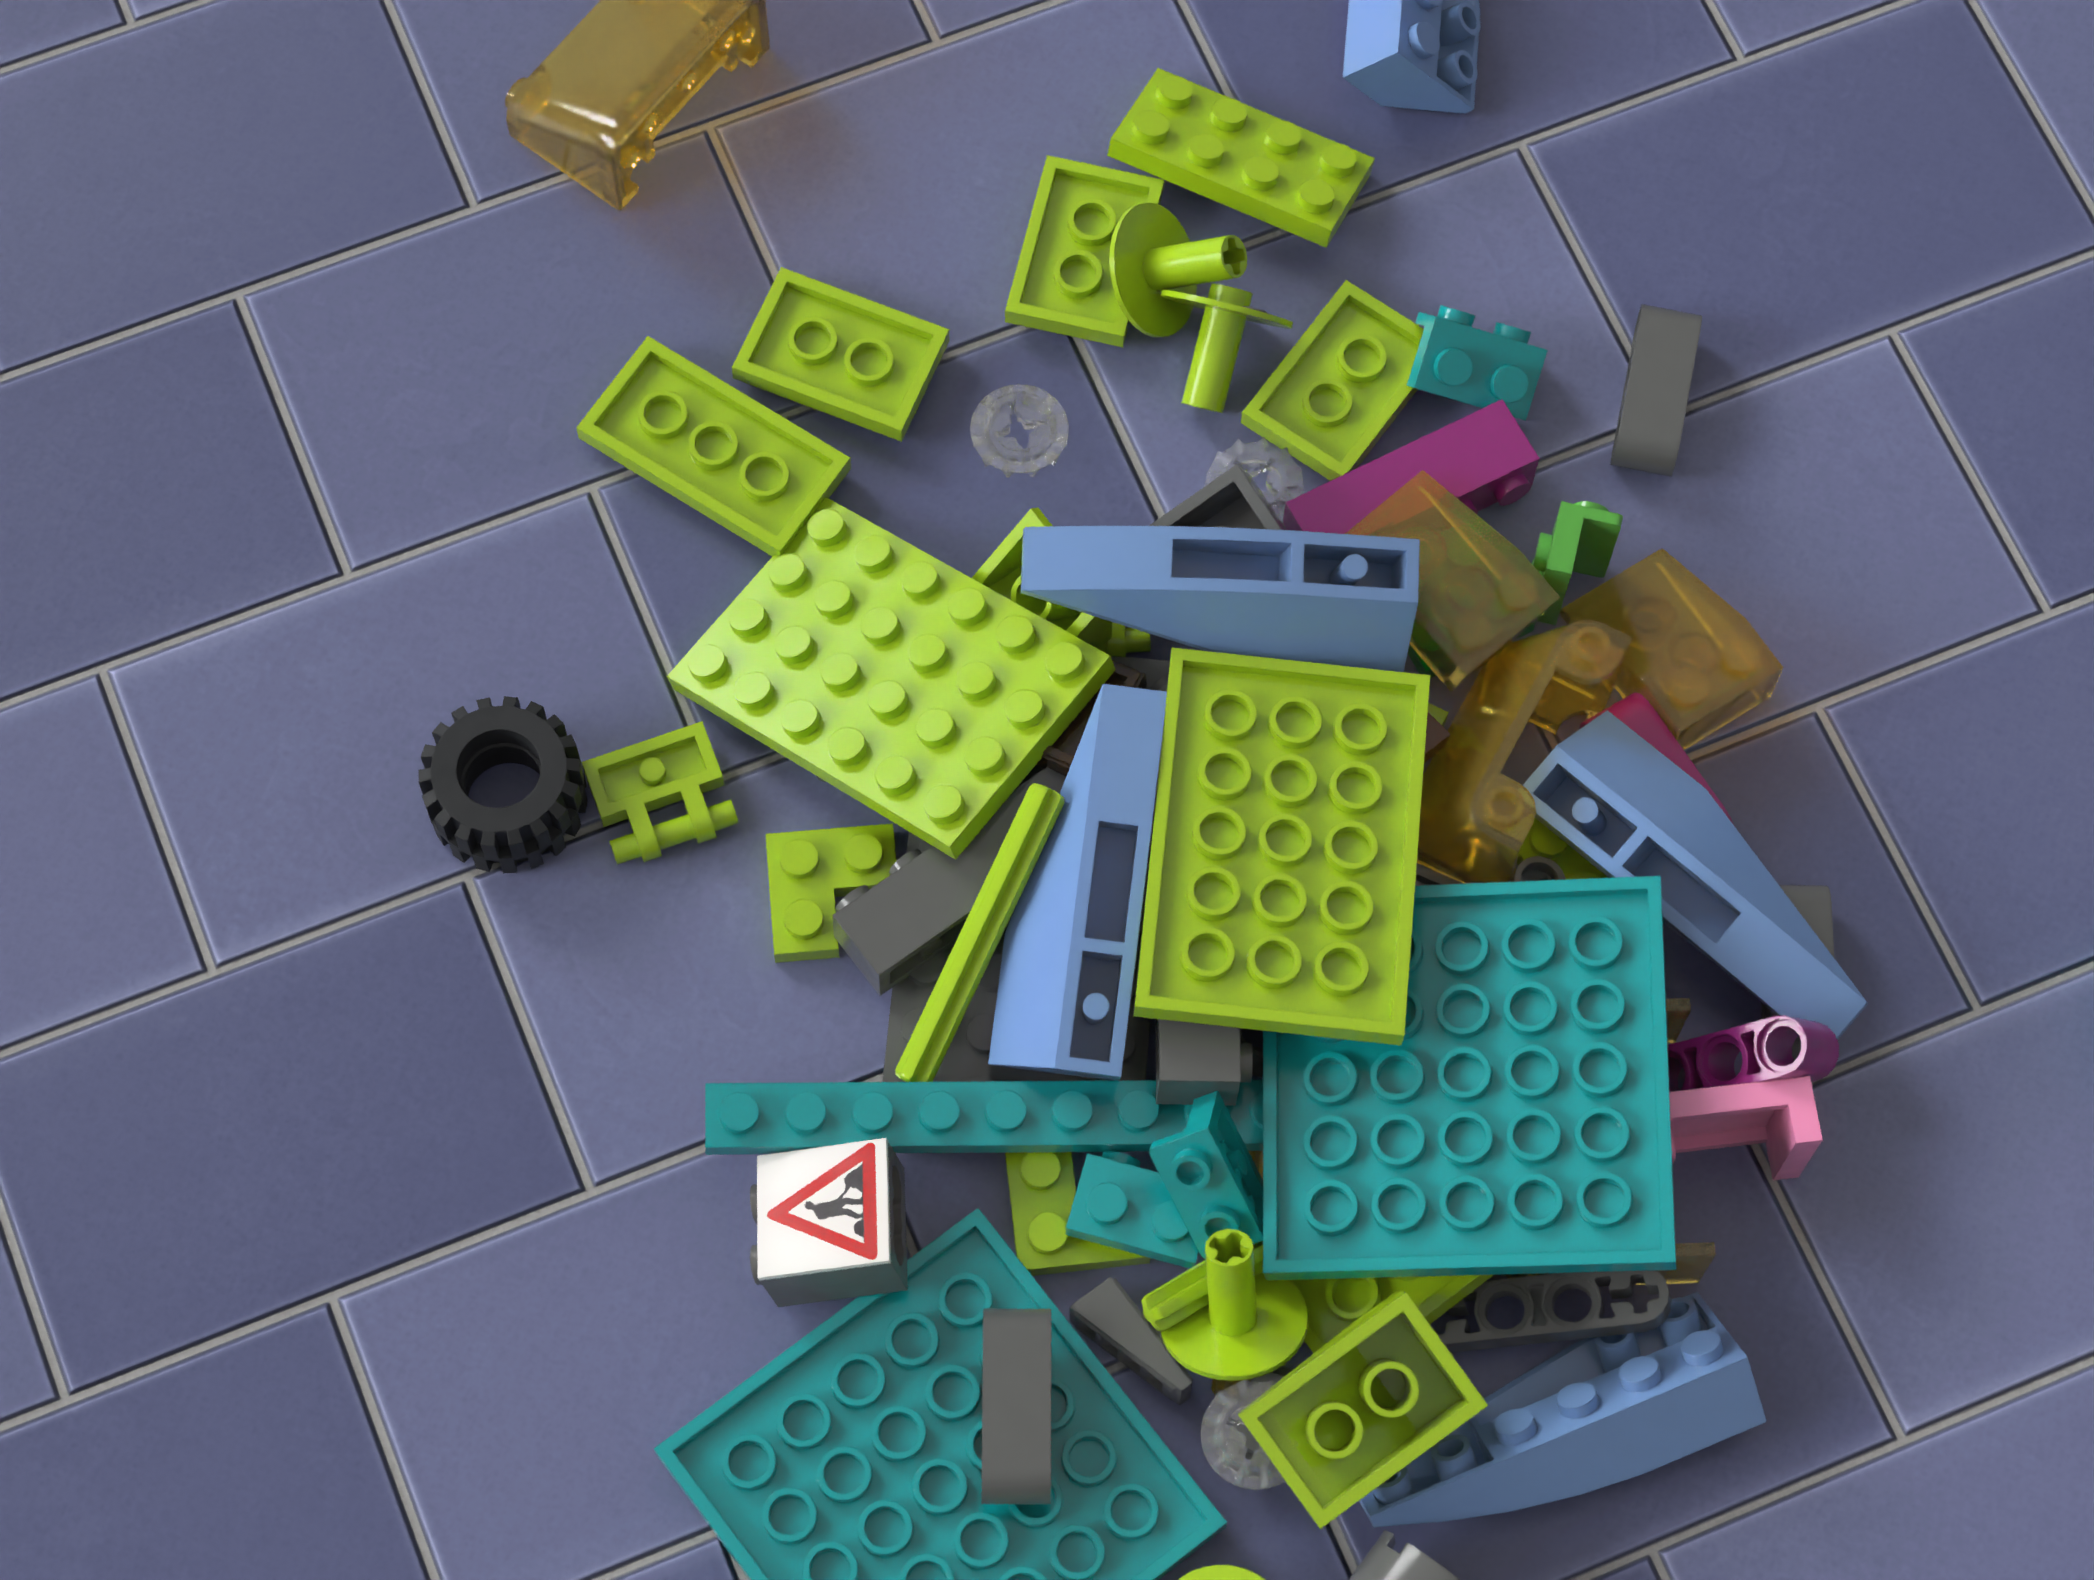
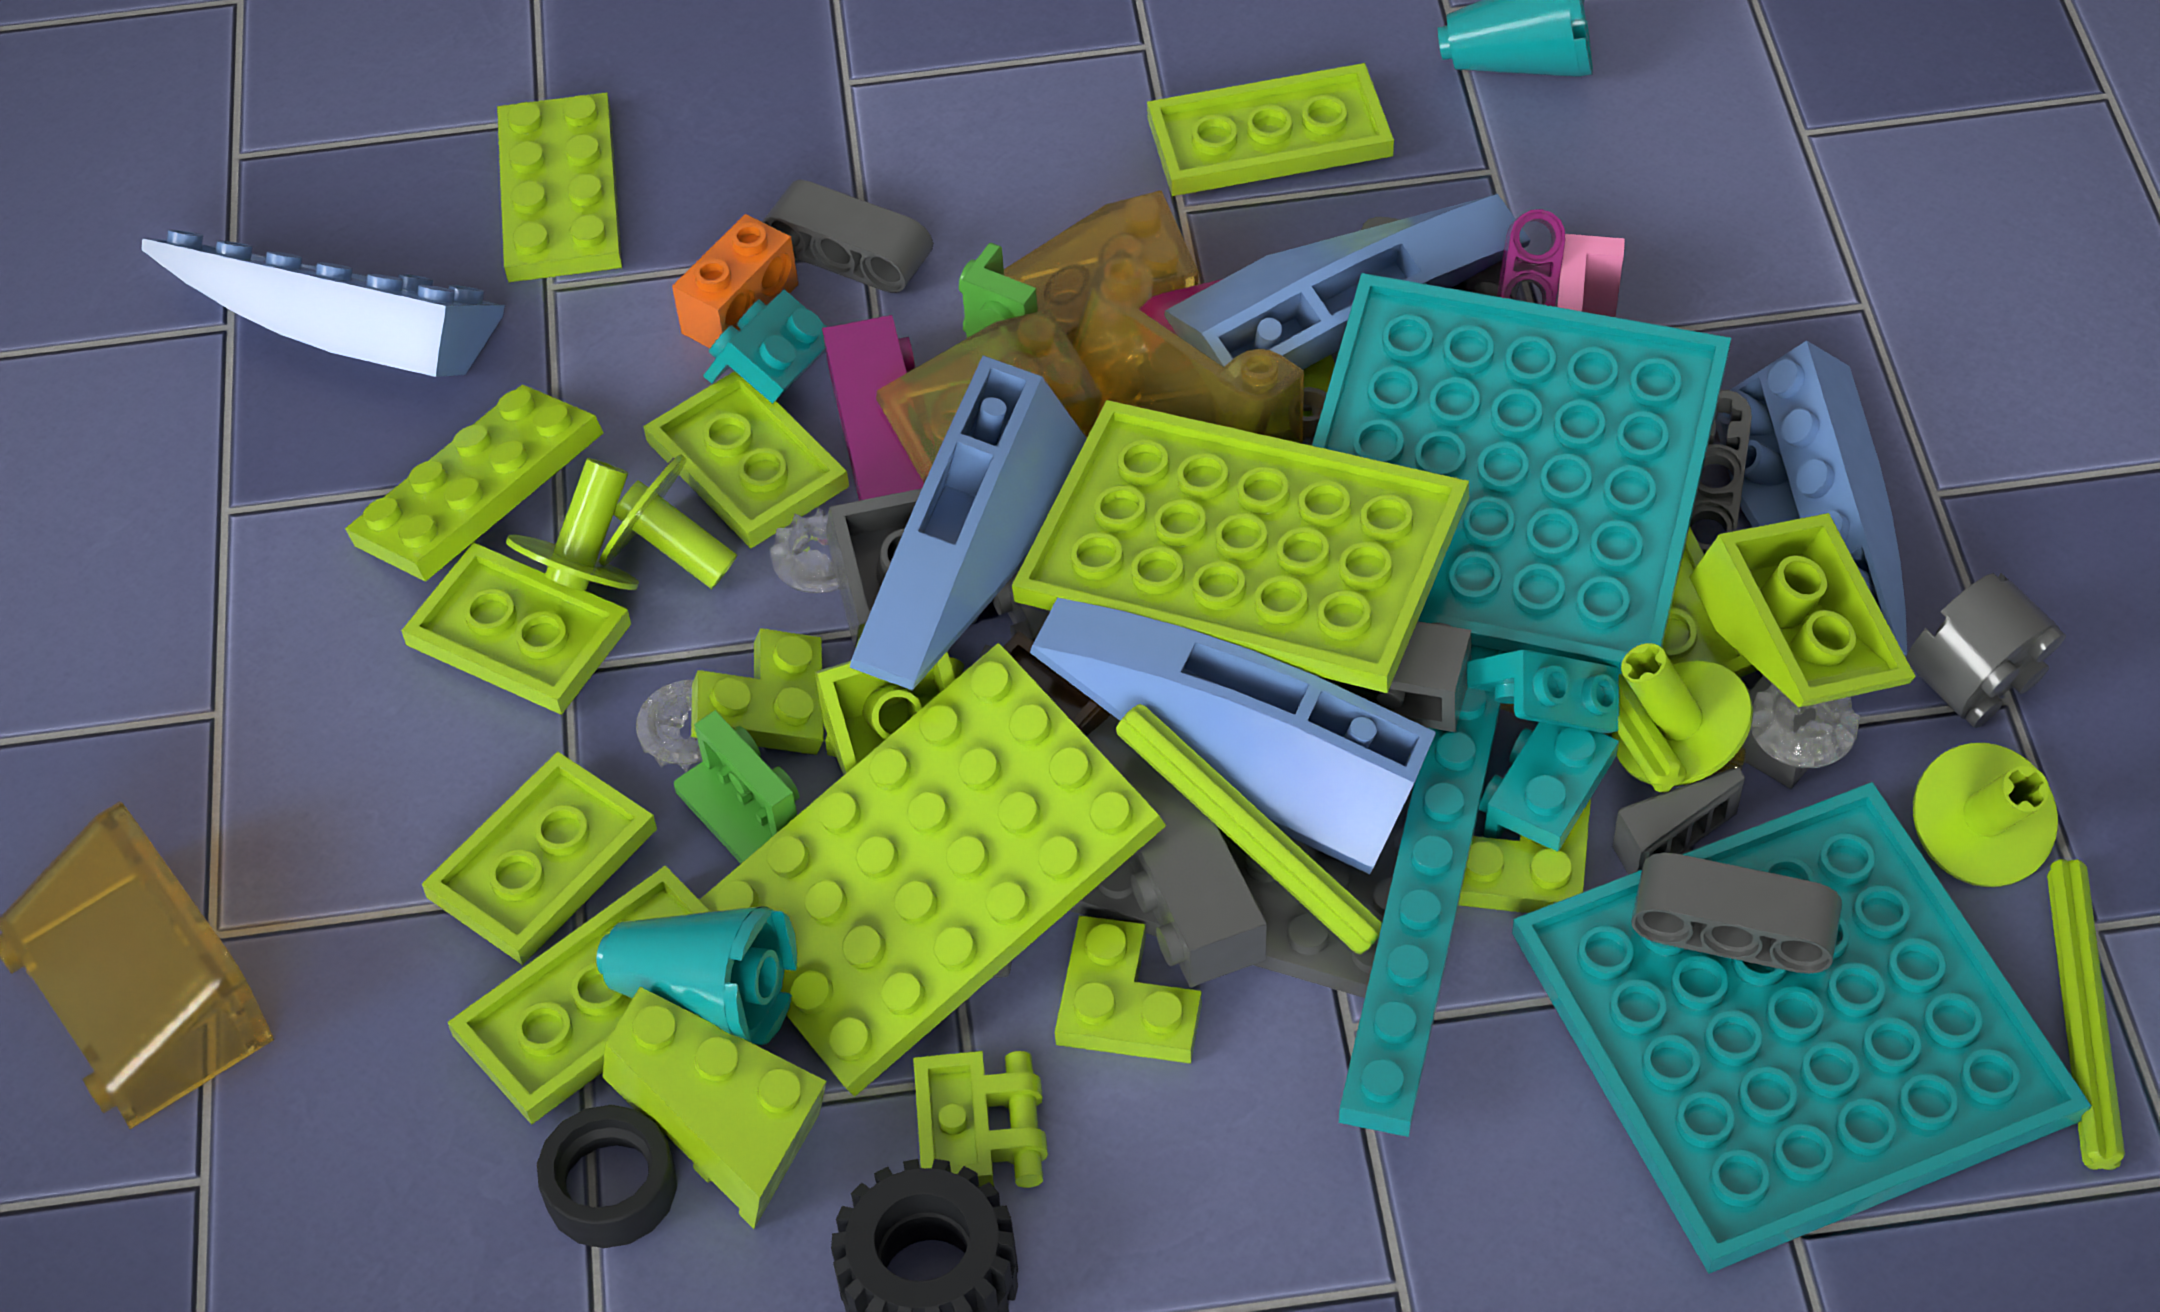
camera: 70 degrees left, 15 degrees down
(521, 471) = (598, 1129): none -> black tyre
(611, 570) = (714, 1096): none -> lime wedge
(721, 523) = (710, 964): none -> teal cone
(830, 1223) = (1507, 1040): piece -> none
(944, 491) = (736, 789): none -> bright green bracket
(1040, 478) = (776, 705): none -> lime plate
(1556, 302) = (739, 269): none -> orange brick
(1648, 105) = (558, 187): none -> lime plate
(1947, 763) = (1269, 129): none -> lime plate

